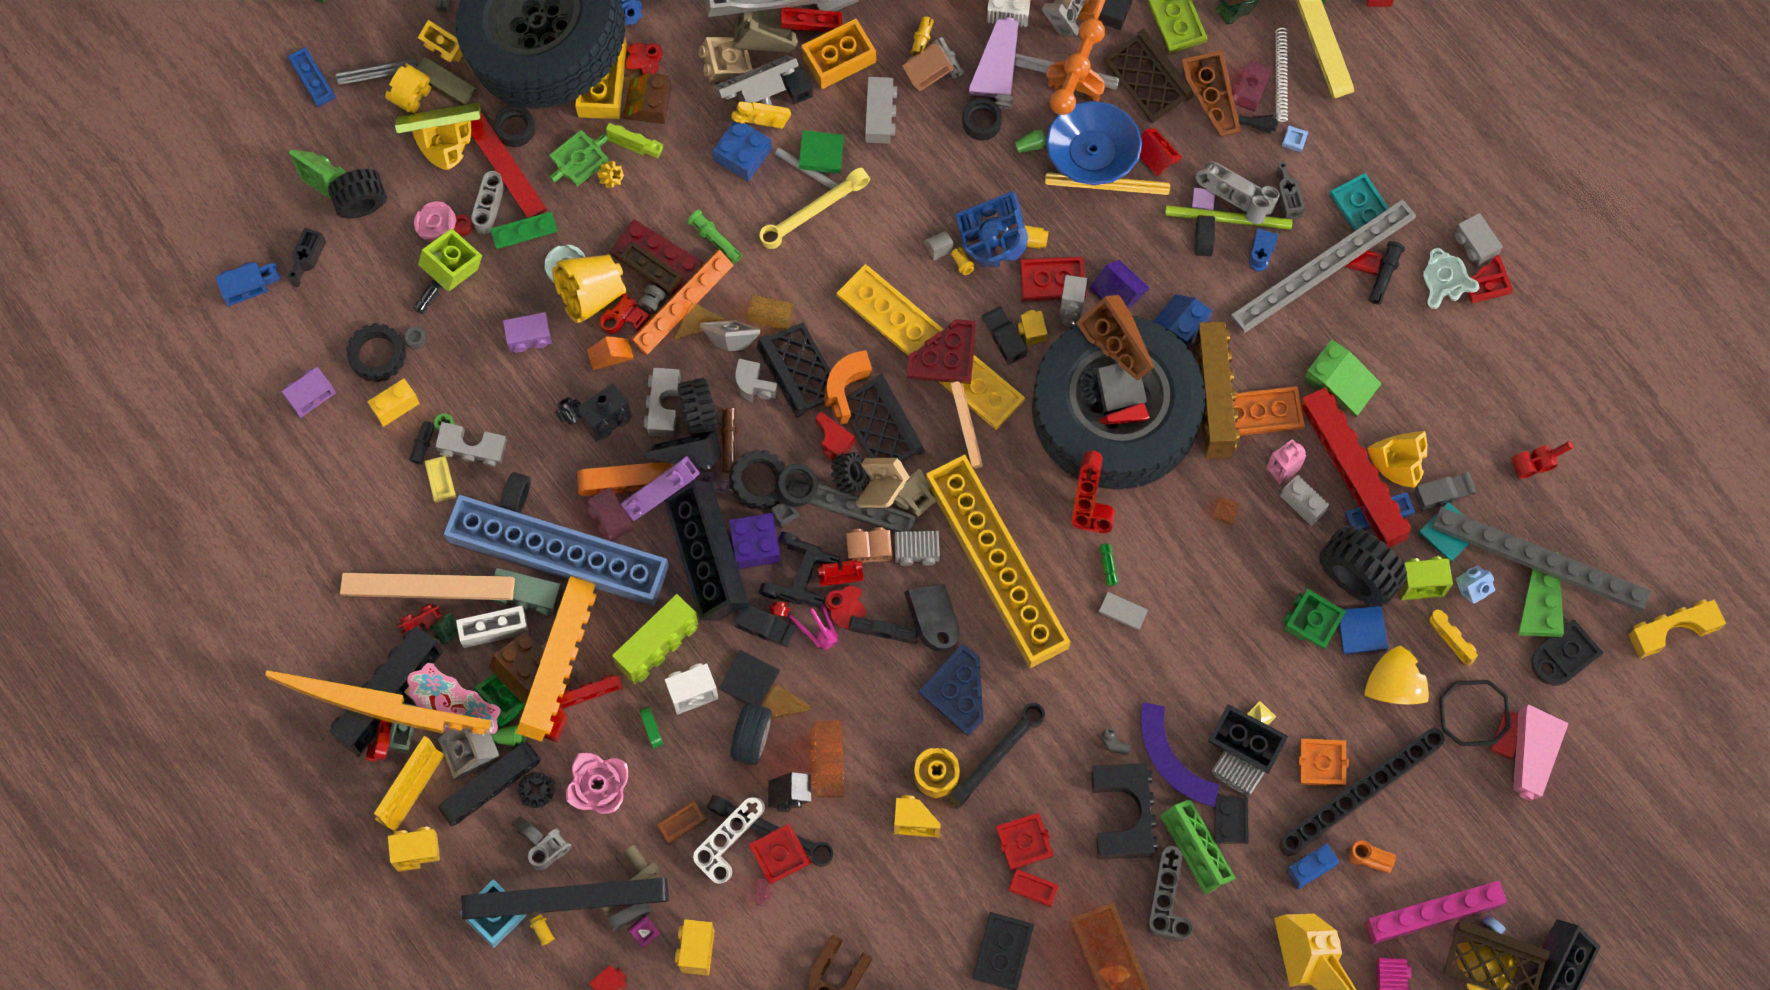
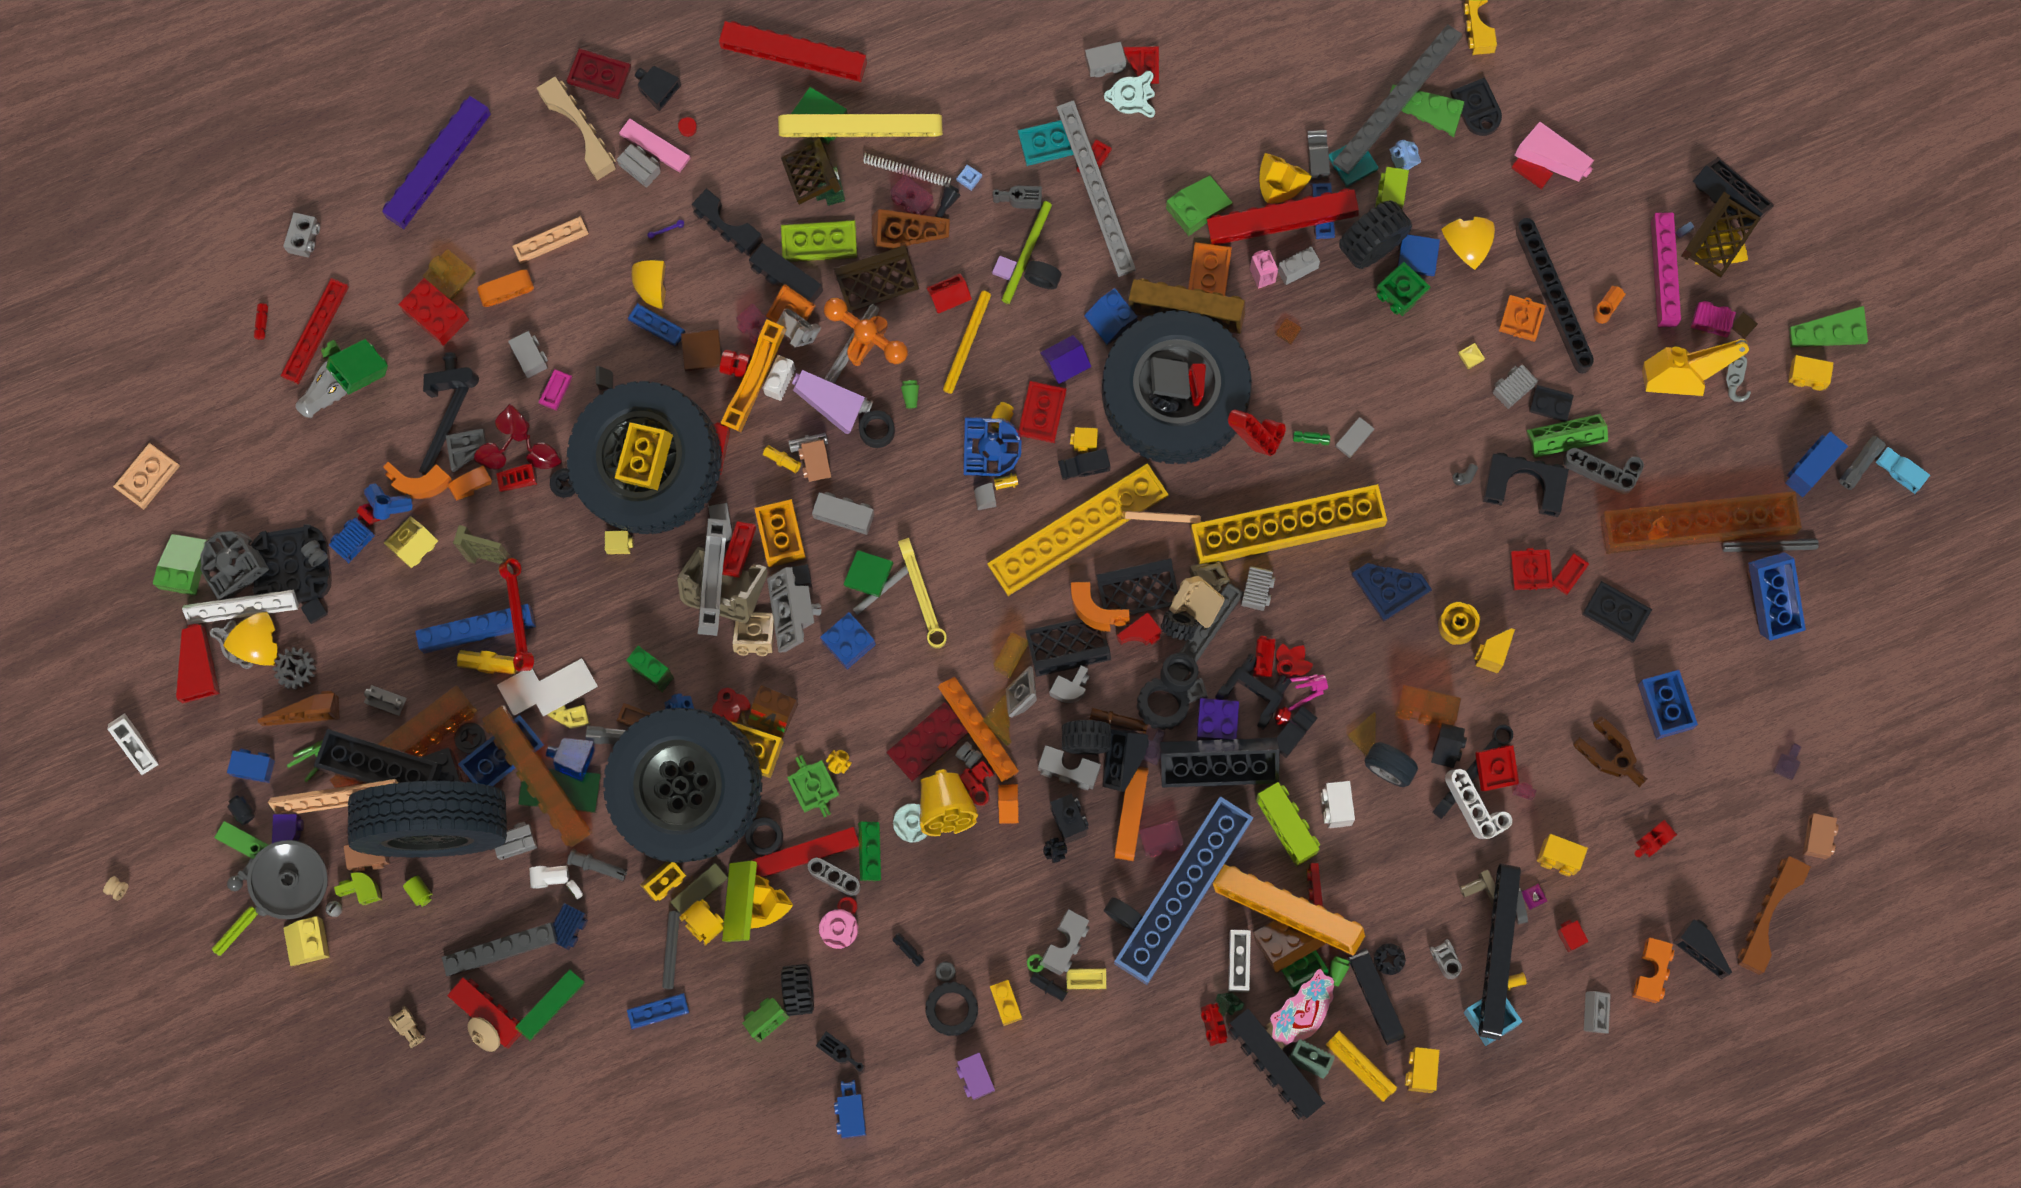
camera: 70 degrees left, 5 degrees up
(380, 705) = (1298, 1066): light orange slope -> none
(380, 746) = (1323, 1079): red piece -> none
(427, 586) = (1187, 1009): light nougat tile -> none
(449, 259) = (884, 921): lime brick -> none
(467, 751) = (1341, 1008): light grey slope -> none
(527, 332) = (972, 869): medium lavender brick -> none
(527, 830) = (1427, 972): dark grey beam -> none
(532, 593) = (1213, 927): sand green brick -> none
(591, 768) = (1415, 897): bright pink brick -> none
(633, 141) = (811, 733): lime hinge -> none
(650, 267) = (940, 747): dark brown tile -> none
(651, 727) = (1360, 848): green beam -> none
(660, 488) = (1155, 786): medium lavender brick -> none
(681, 822) = (1446, 844): dark orange tile -> none
(707, 230) = (916, 690): bright green pin -> none
(749, 679) = (1337, 757): black tile -> none
(761, 114) = (823, 614): yellow hinge -> none
(869, 546) = (1246, 627): nougat brick -> none
(883, 630) = (1322, 634): black piece -> none
(933, 616) = (1323, 590): black tile -> none
(945, 355) = (1093, 516): dark red plate -> none
(965, 789) = (1454, 573): black piece -> none
(1072, 300) = (1077, 398): light grey arch -> none
(1099, 128) = (934, 323): blue dish -> none
(1115, 332) = (1129, 366): dark orange wedge -> none
(1166, 762) = (1492, 439): dark purple tile -> none
(1239, 191) = (1009, 235): light grey piece -> none
(1248, 739) = (1493, 369): black slope -> none
(1262, 247) = (1062, 231): blue piece -> none
(1312, 866) = (1606, 351): blue brick -> none
(1388, 265) = (1107, 136): black pin -> none
(1452, 637) = (1443, 187): yellow hinge -> none
(1475, 743) = (1506, 215): black piece -> none
(1541, 460) = (1311, 73): red beam -> none

